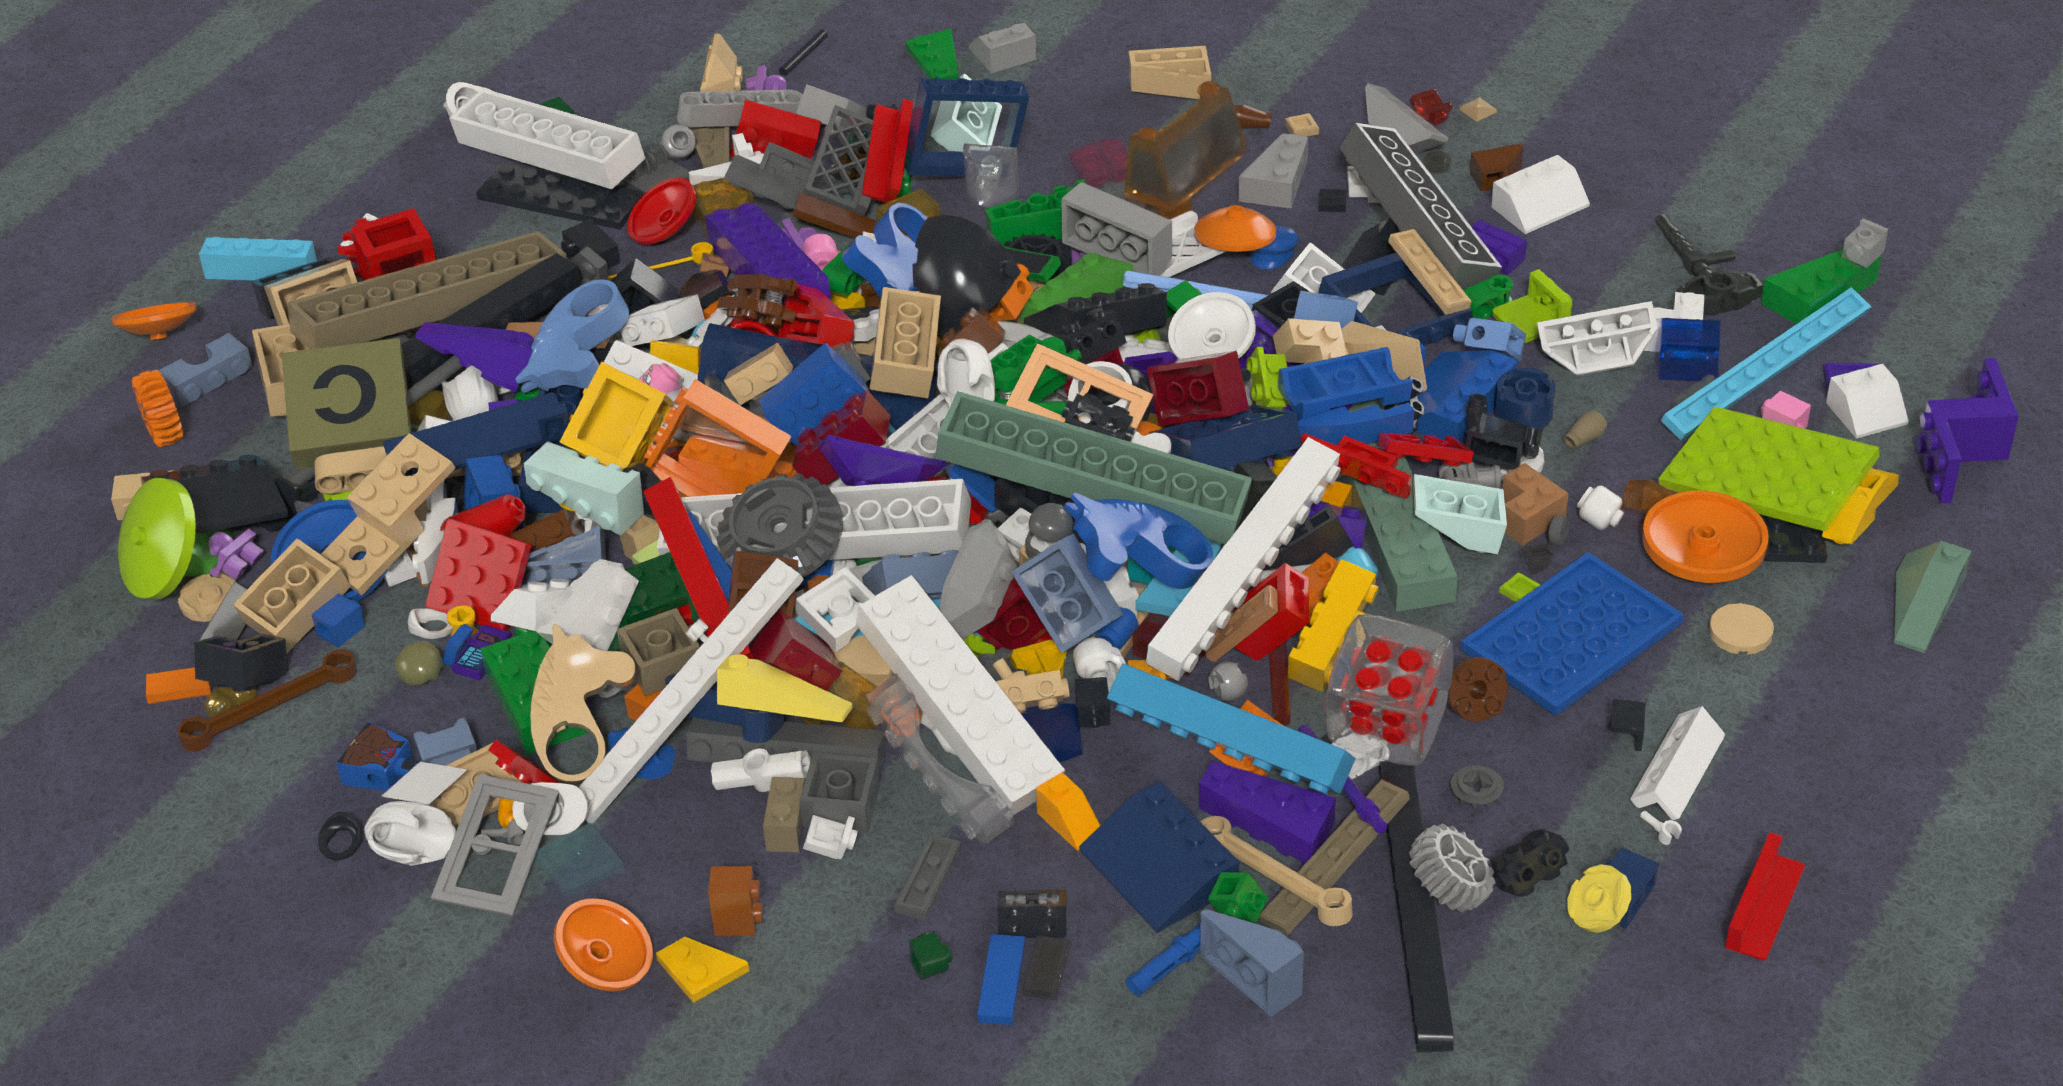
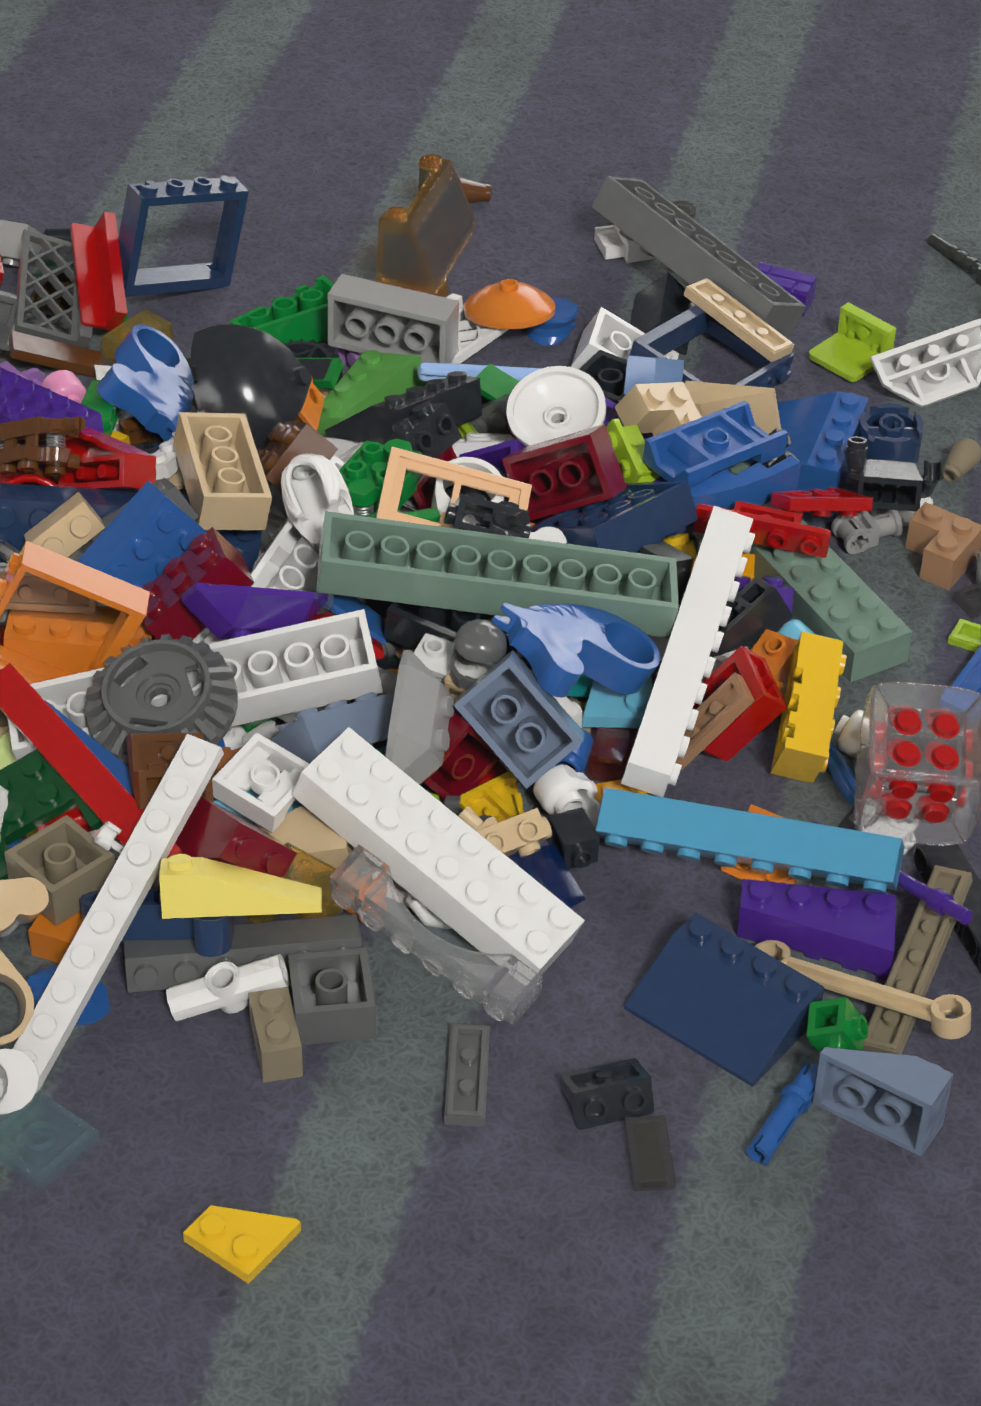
camera: 20 degrees left, 0 degrees up
(603, 944) = (120, 1236): orange dish -> none
(734, 901) = (262, 1149): dark orange piece -> none
(830, 837) = (338, 1051): white bracket -> none
(929, 955) = (512, 1167): dark green plate -> none
(935, 54) = (95, 171): green wing -> none
(965, 123) = (168, 237): light aqua slope -> none
(990, 174) = (215, 284): clear brick -> none
(1001, 979) = (604, 1178): blue tile -> none
(1005, 48) = (172, 152): light grey slope -> none
(1066, 809) = (598, 966): light orange slope -> none
(1101, 161) = (329, 256): clear pink slope -> none
(1169, 71) = (367, 155): tan wedge -> none
(1228, 681) = (712, 787): light grey piece -> none
(1276, 173) = (523, 244): light grey wedge -> none
(1280, 685) = (765, 780): clear red axle -> none
(1302, 125) = (524, 194): tan tile -> none
(1332, 200) = (590, 265): black tile -> none
(1390, 112) = (610, 162): light grey wedge -> none
(1430, 106) = (651, 158): clear red bracket -> none
(1462, 511) = (889, 562): light aqua slope -> none
(1478, 109) = (697, 155): tan slope -> none
(1488, 295) = (805, 336): green piece -> none
(1491, 335) = (838, 373): medium blue torso -> none
(1495, 164) = (745, 208): reddish brown slope -> none
(1539, 194) = (803, 230): white slope -> none

